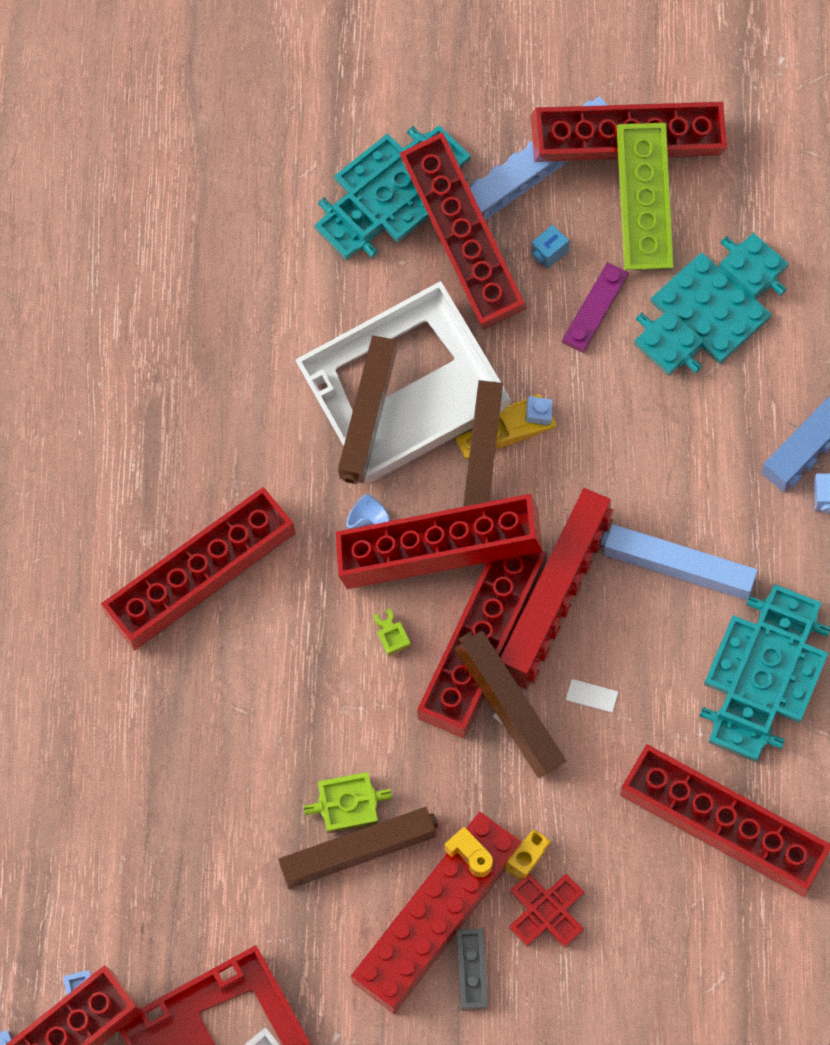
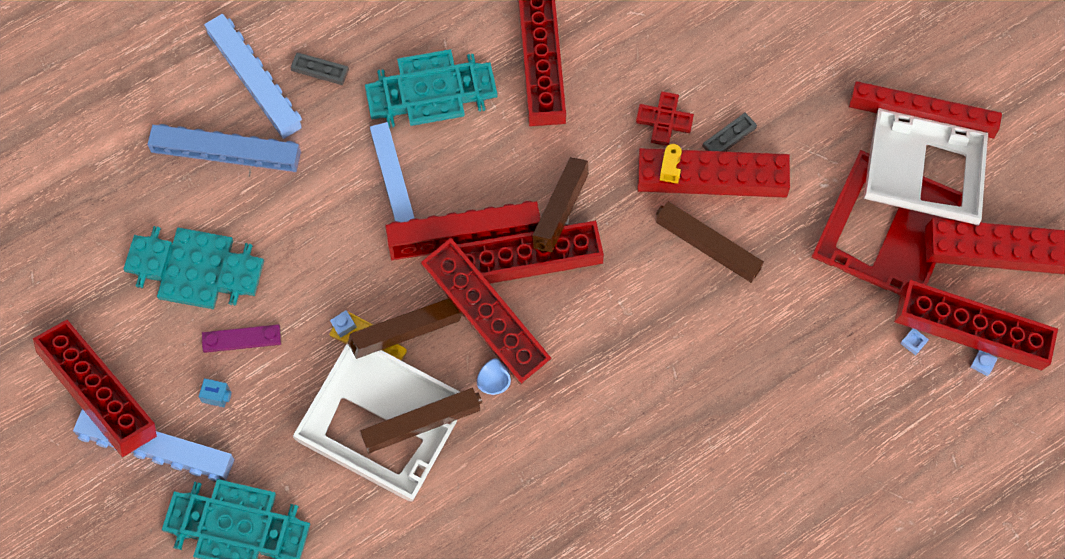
camera: 130 degrees left, 0 degrees up
(198, 568) = (605, 456): red brick -> none
(347, 802) = (686, 266): lime plate -> none
(392, 635) = (560, 311): lime plate -> none
(463, 231) = (243, 446): red brick -> none
(528, 855) = (631, 145): yellow leg -> none
(592, 695) = (513, 178): white sticker -> none
(645, 196) = (139, 346): lime plate -> none

